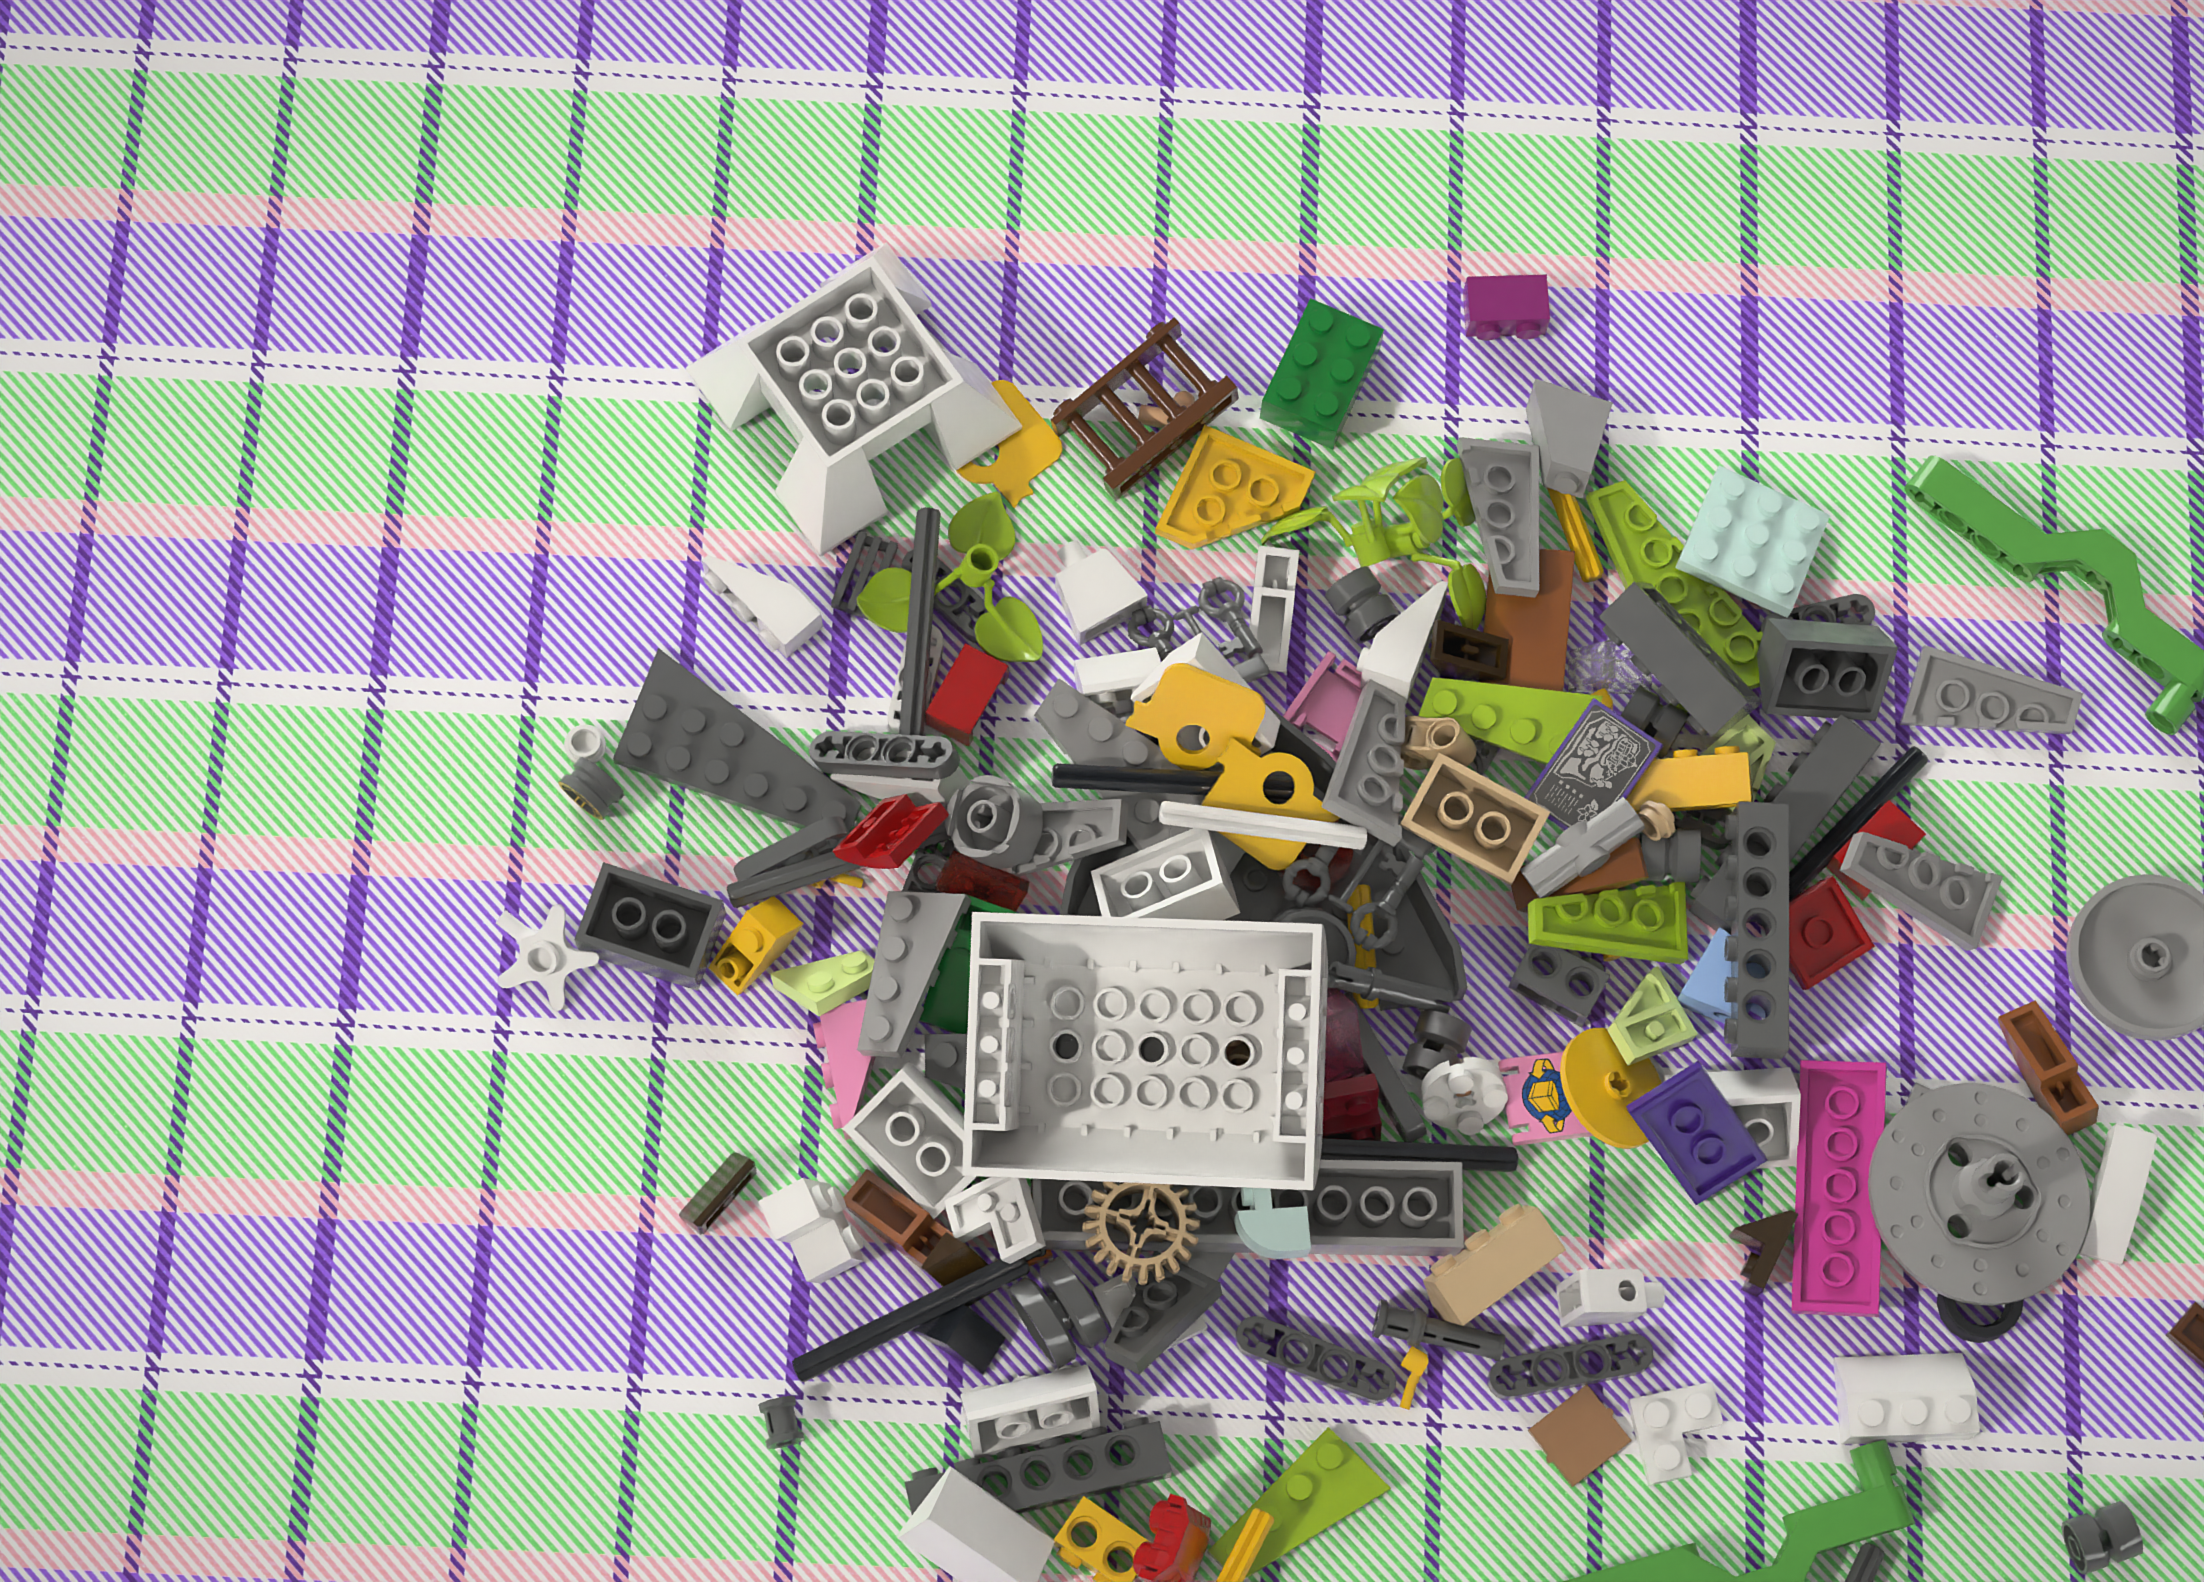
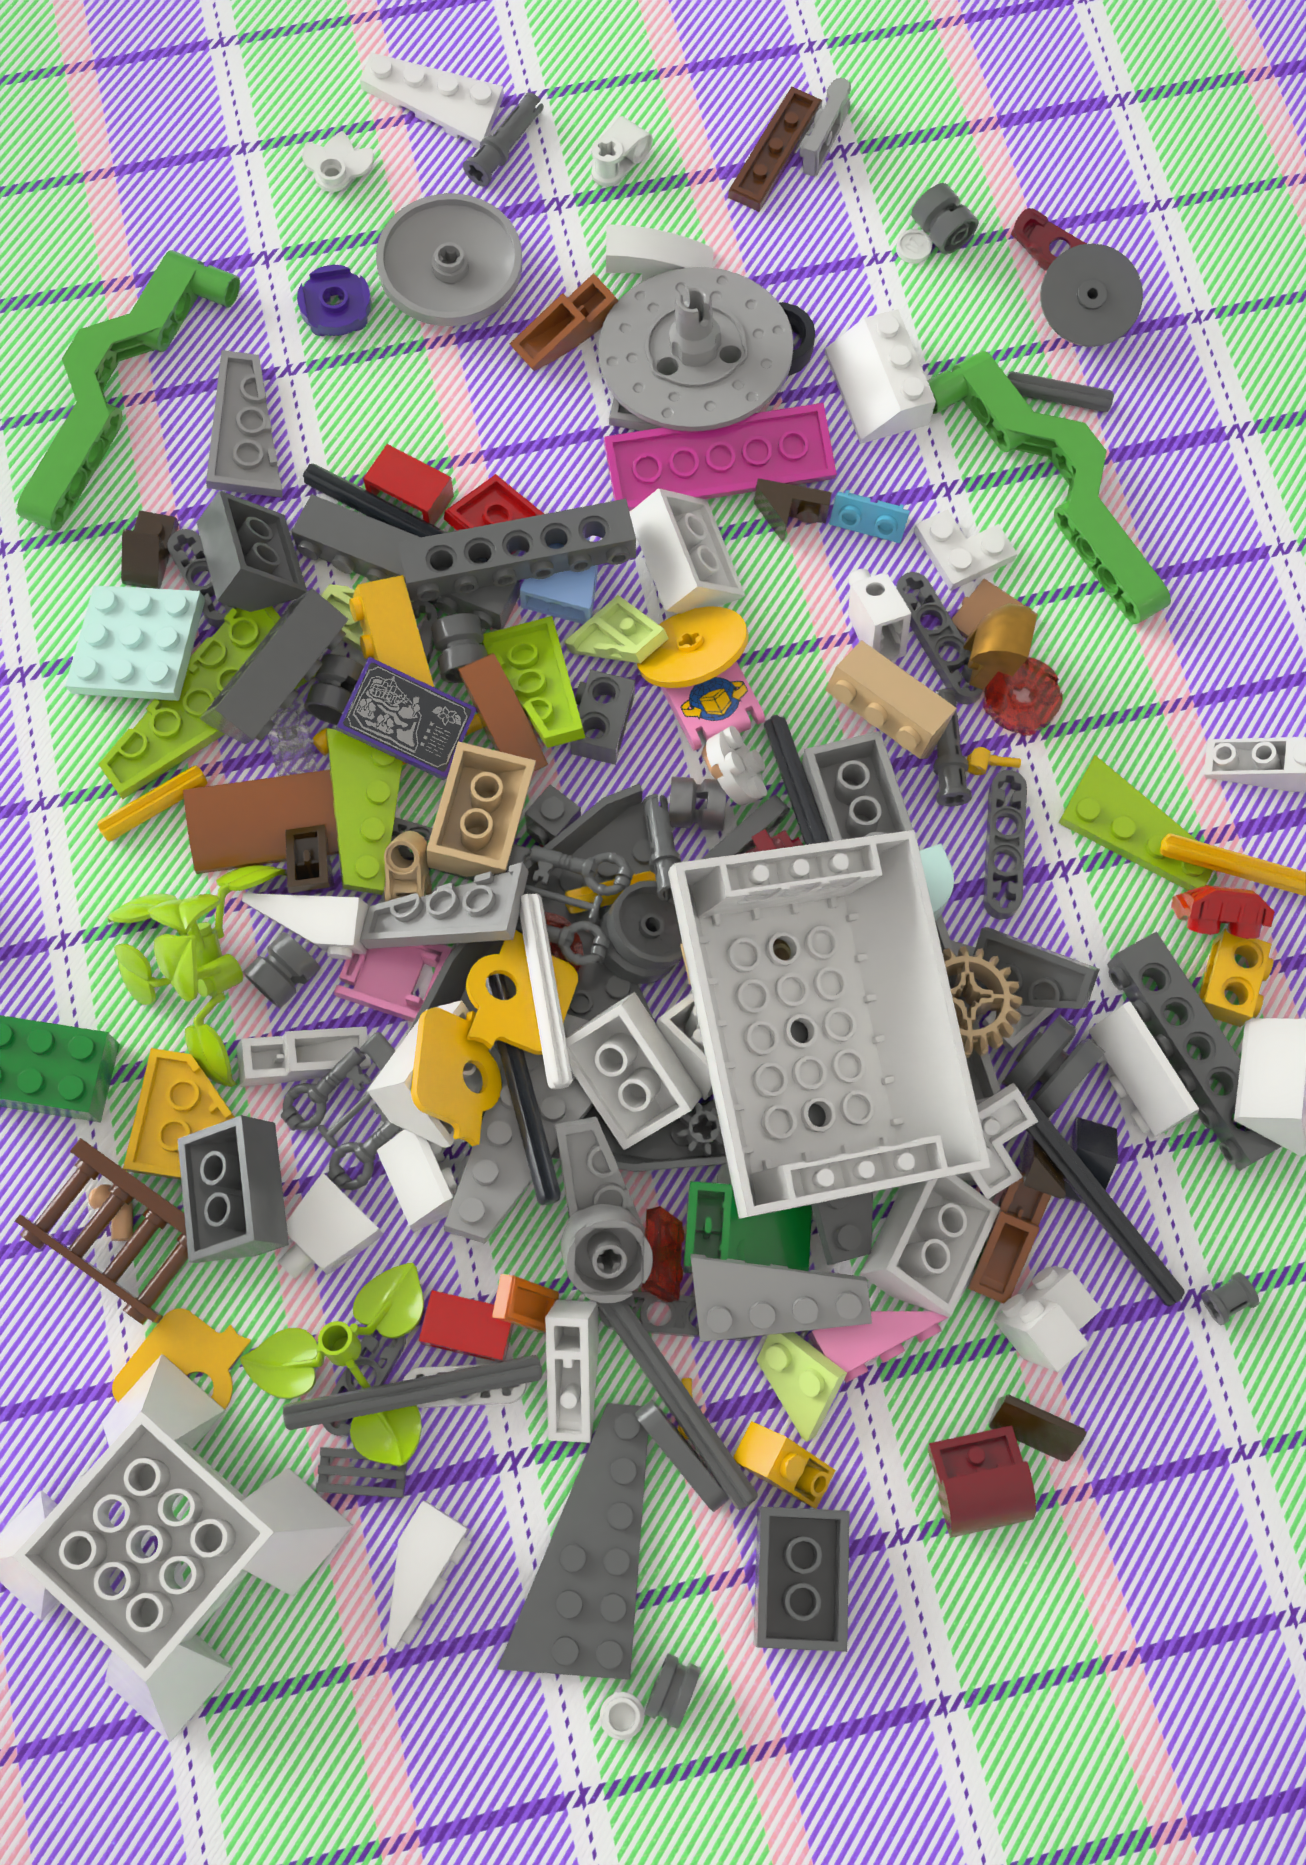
camera: 105 degrees left, 0 degrees up
(544, 955) = (861, 1683): white animal -> none
(684, 1119) = (982, 1481): none -> dark red brick
(885, 750) = (556, 1388): dark grey beam -> none
(890, 833) = (644, 1353): red slope -> none
(974, 740) = (523, 1302): none -> orange tile
(1150, 510) = (232, 1190): none -> dark grey slope
(1458, 897) = (550, 815): none -> dark grey brick
(1476, 1458) = (1024, 716): none -> clear red plate
(1506, 507) = (149, 859): light grey wing -> none
(1536, 1406) = (1000, 643): none -> pearl gold brick
(1568, 434) = (64, 822): light grey slope -> none
(1582, 848) = (485, 706): light grey piece -> none
(1657, 820) = (439, 653): tan plate -> none
(1697, 1132) = (715, 567): dark purple tile -> none
(1744, 1317) = (870, 518): none -> medium azure hinge
(1854, 571) = (146, 550): none -> dark brown slope
(1934, 891) = (436, 435): light grey wing -> none
(2080, 1497) = (913, 246): none -> white piece
(2112, 844) = (334, 319): none -> dark purple plate

